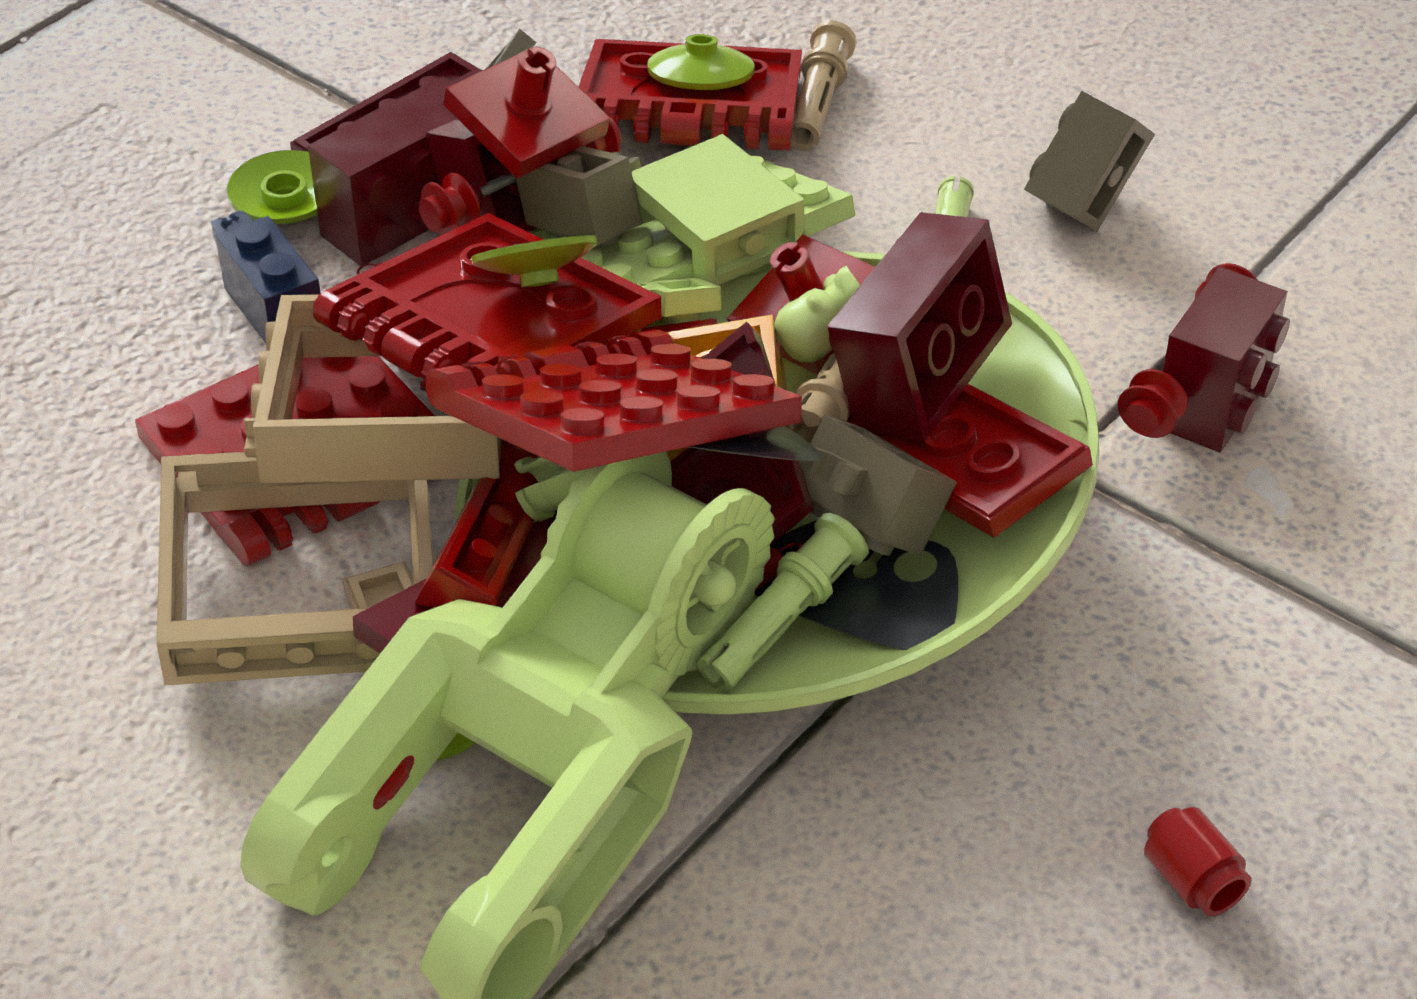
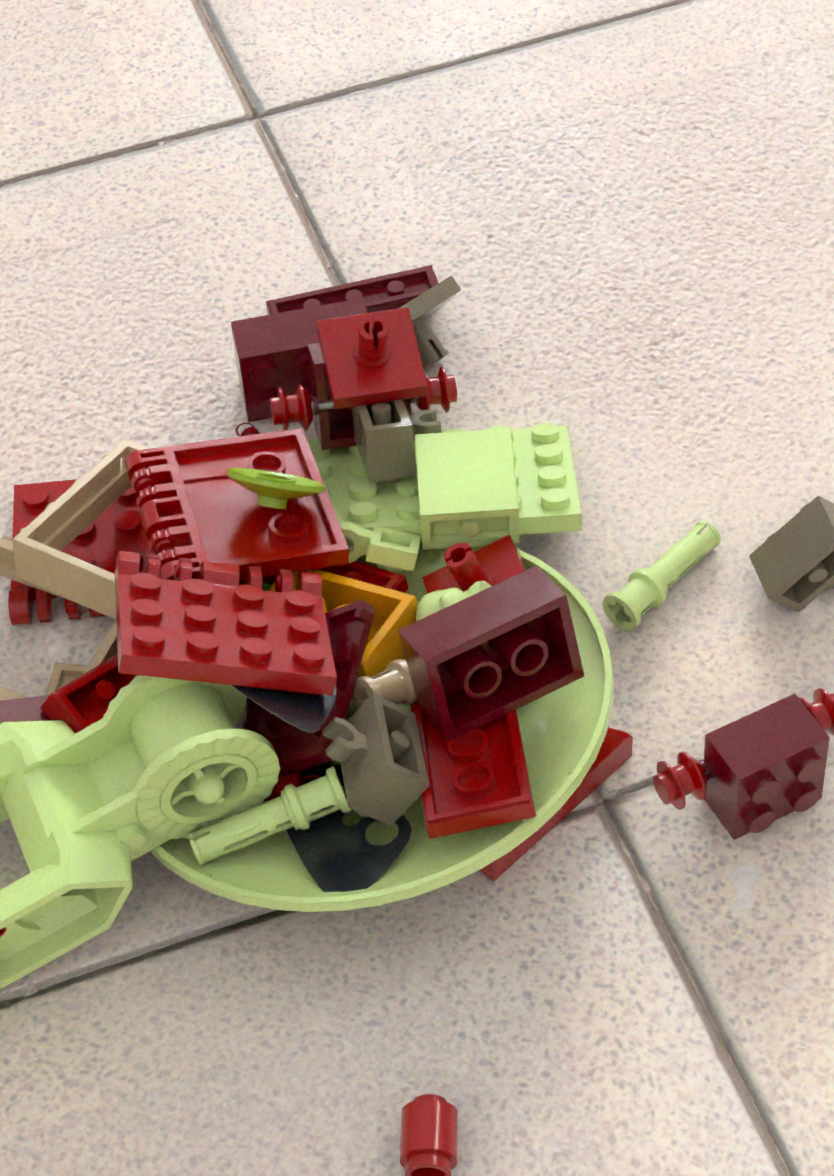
camera: 35 degrees right, 5 degrees up
(259, 267) = (164, 401): dark blue hinge -> none
(274, 186) = (212, 339): lime dish -> none
(623, 88) = (560, 362): red hinge -> none
(701, 65) = (584, 352): lime dish -> none
(823, 71) = (690, 387): tan pin -> none

